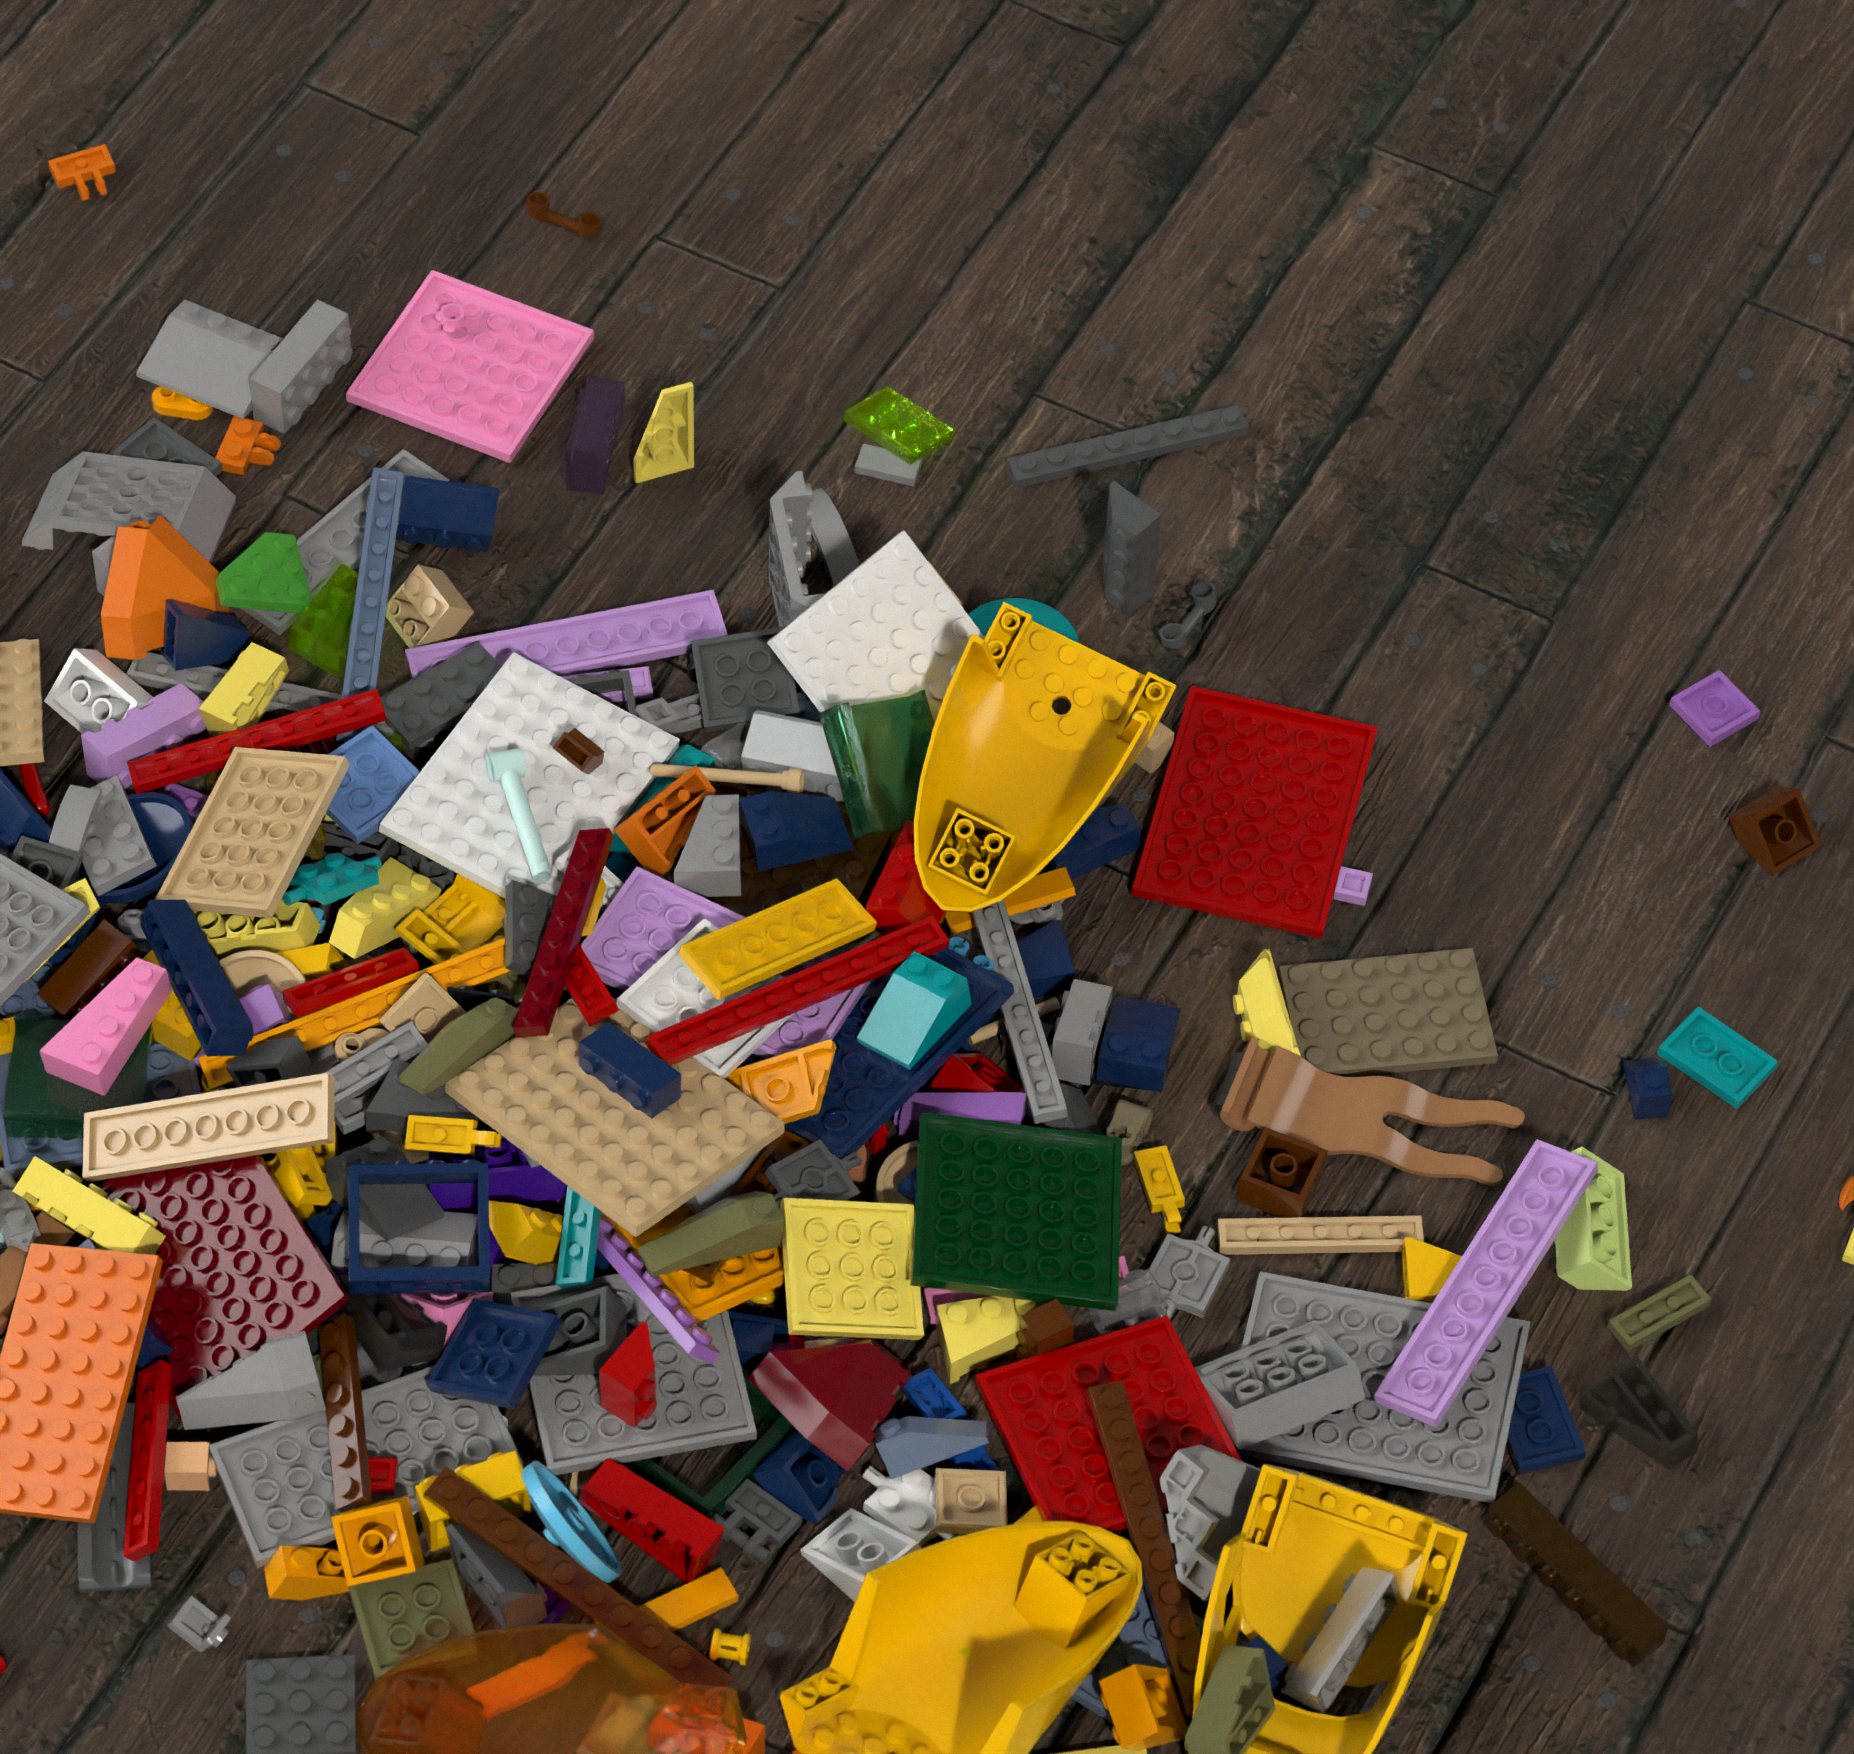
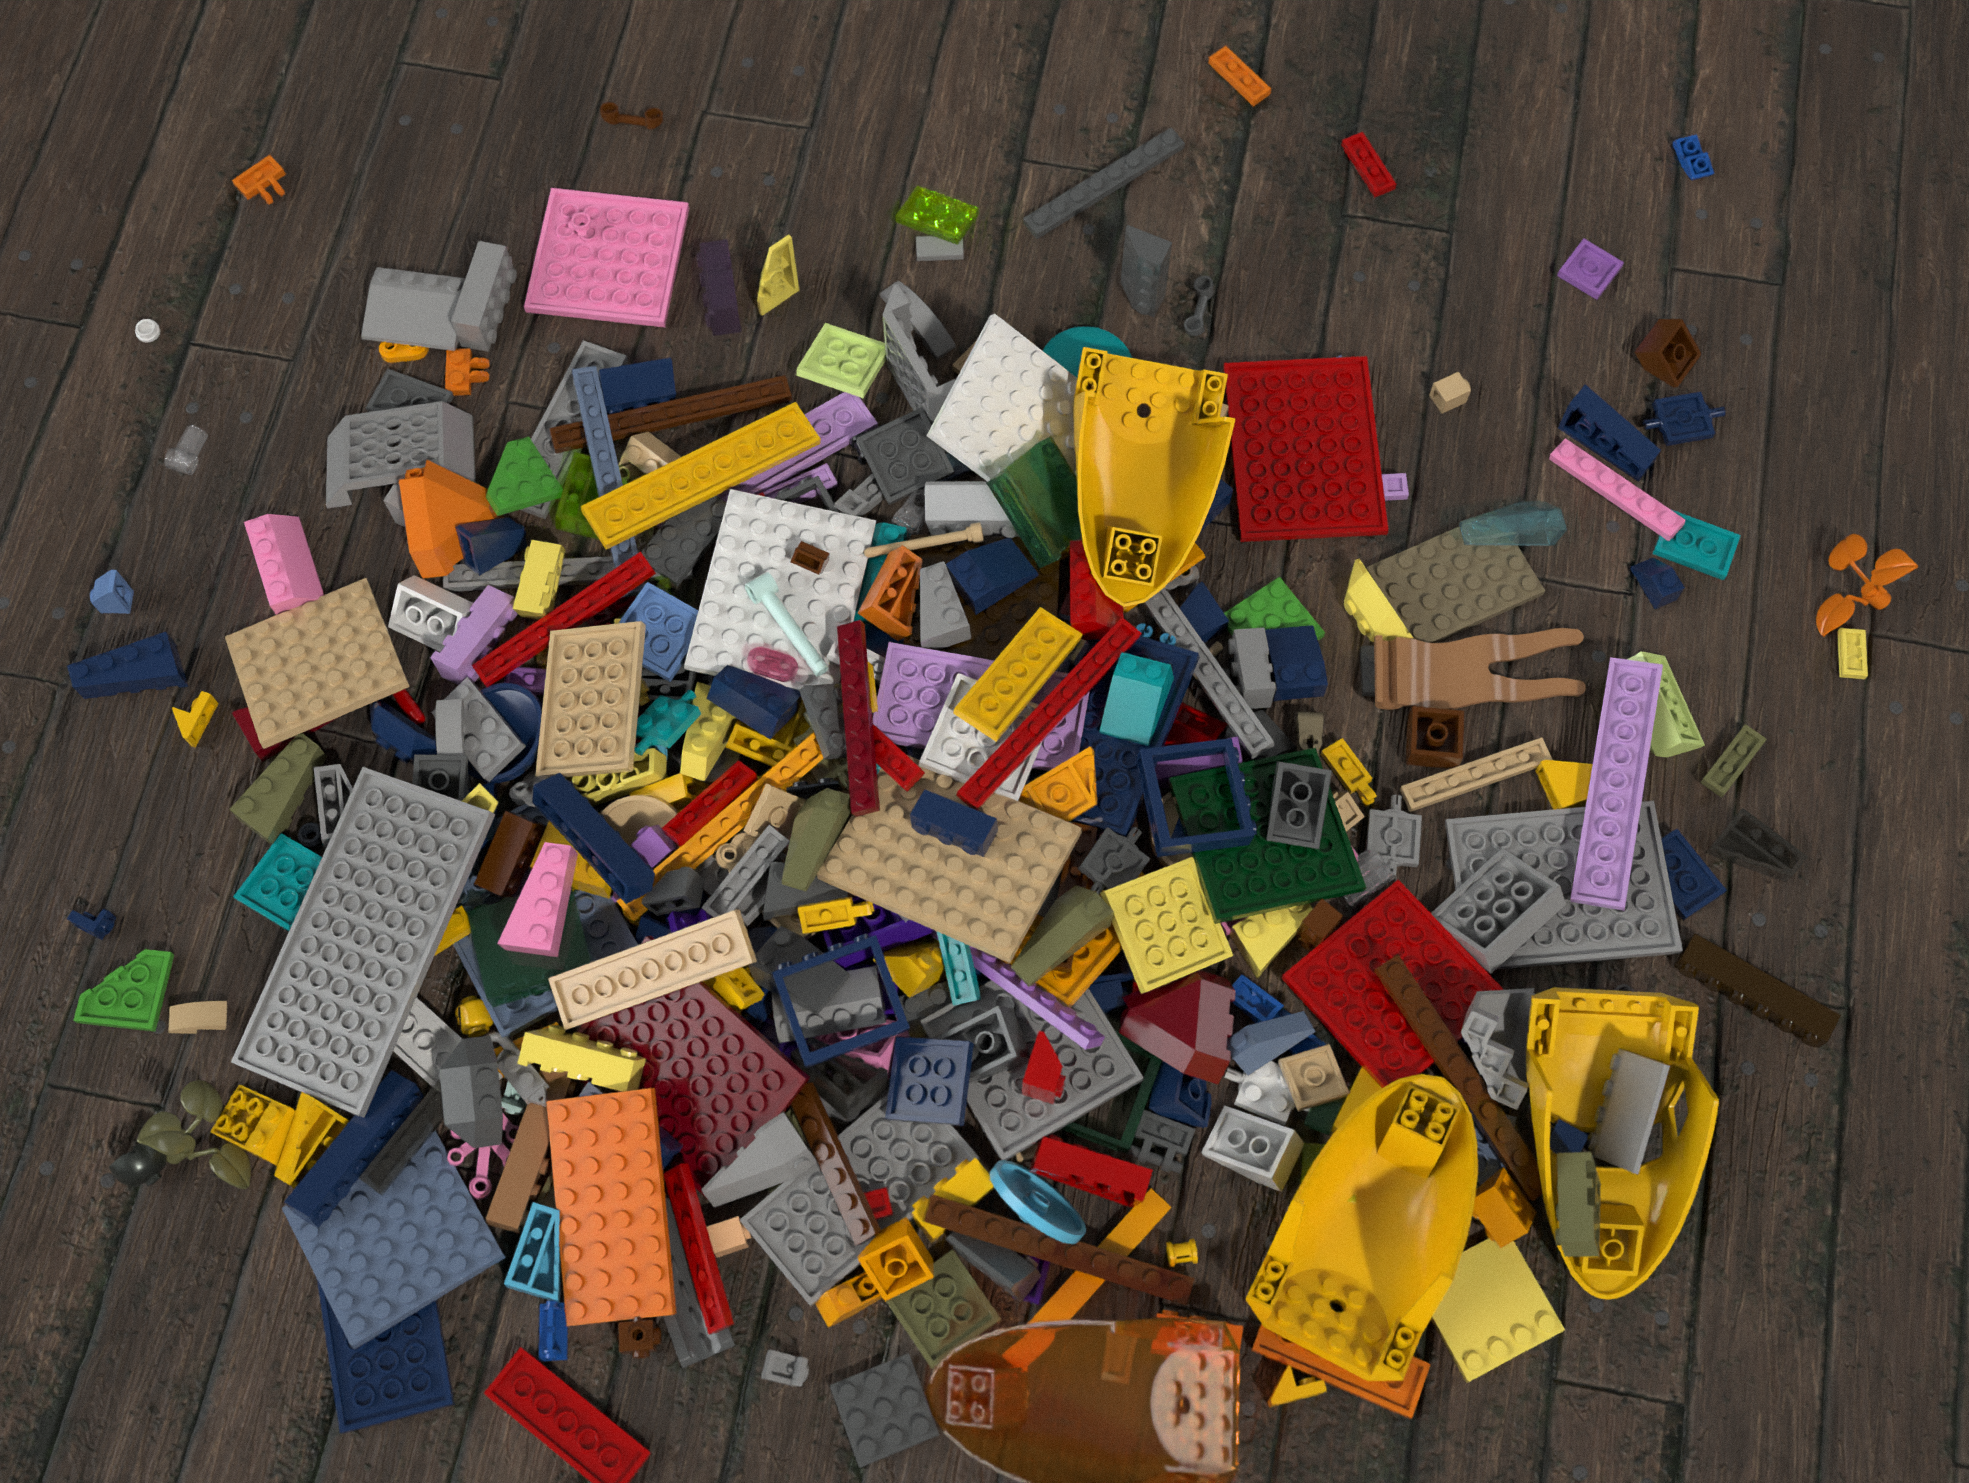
camera: 15 degrees left, 15 degrees up
(40, 1537) = (629, 1336): none -> reddish brown brick
(450, 888) = (754, 699): none -> dark blue wedge
(484, 852) = (771, 665): none -> clear pink plate
(485, 629) = (700, 475): none -> yellow plate
(489, 559) = (679, 412): none -> reddish brown plate
(713, 555) = (843, 360): none -> yellowish green plate
(933, 1186) = (1163, 844): none -> dark blue window
(1068, 1182) = (1298, 804): none -> dark grey slope
(1135, 1226) = (1348, 809): none -> tan bracket
(1141, 977) = (1271, 609): none -> bright green plate
(1351, 368) = (1239, 76): none -> orange plate
(1470, 798) = (1450, 392): none -> tan brick
(1476, 513) = (1368, 164): none -> red plate
(1488, 969) = (1516, 525): none -> clear light blue wedge
(1639, 966) = (1617, 489): none -> bright pink plate
(1652, 898) = (1608, 434): none -> dark blue wedge
(1763, 911) = (1683, 418): none -> dark blue plate

